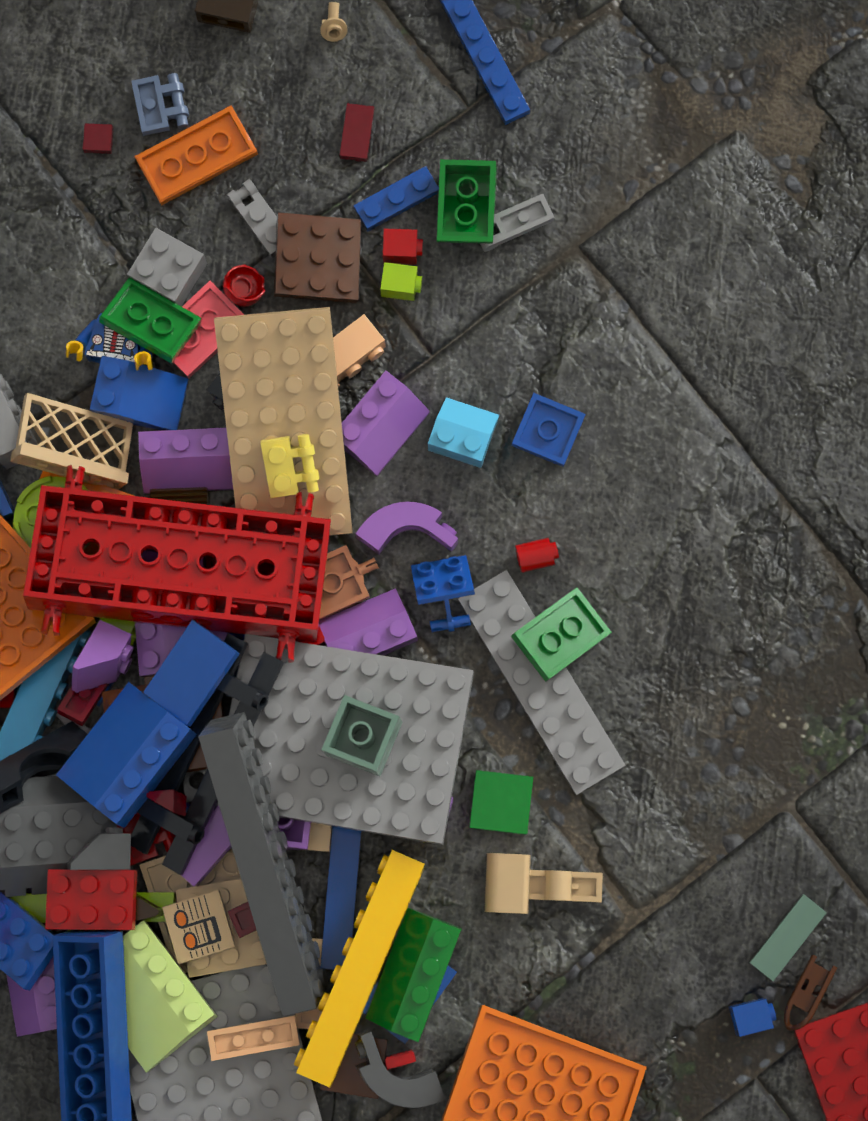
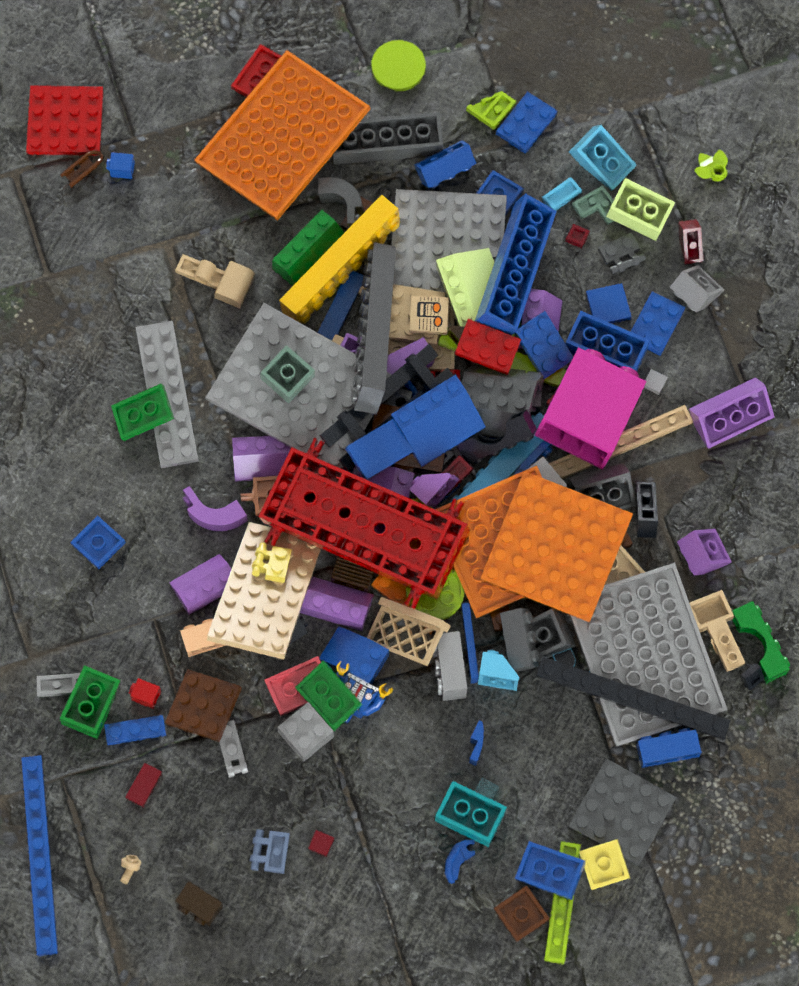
camera: 165 degrees left, 10 degrees down
(104, 852) = (472, 369): dark grey slope -> none
(170, 800) = (419, 383): dark red slope -> none
(196, 155) = (258, 808): orange tile -> none
(242, 919) = (399, 310): dark red tile -> none
(243, 285) = (258, 702): red hair -> none
(253, 1038) = (419, 246): light nougat plate -> none
(400, 281) = (155, 670): lime brick -> none
(400, 1059) = (336, 210): red tile -> none
(443, 581) = (204, 468): blue plate -> none
(462, 432) = (152, 559): medium azure slope -> none
(501, 802) = (219, 332): green tile -> none
(536, 554) = (138, 467): red brick -> none
(787, 937) = (81, 202): sand green tile -> none

